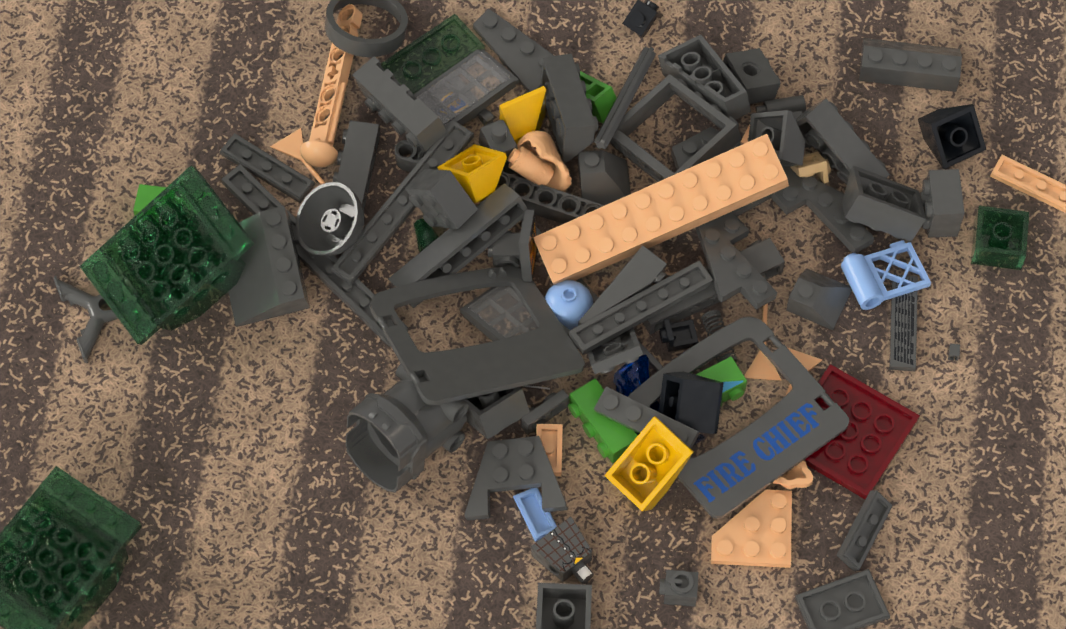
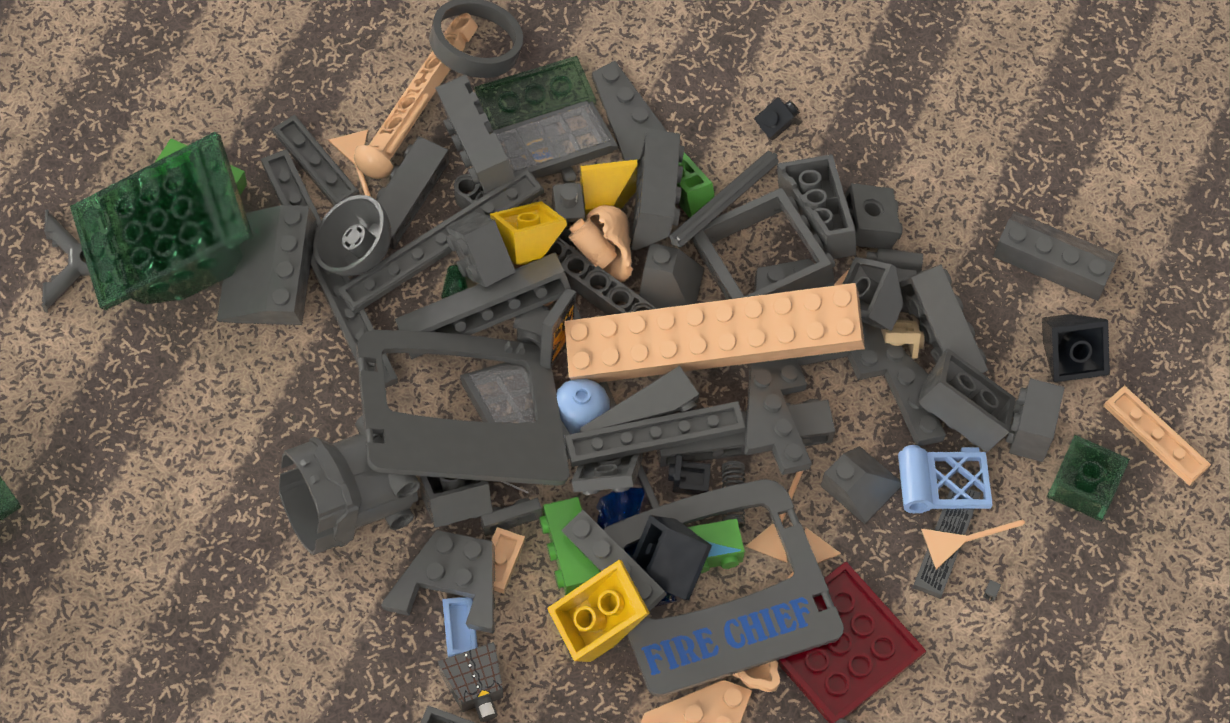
camera: 15 degrees right, 0 degrees up
(904, 326) = (944, 544): none -> light nougat piece

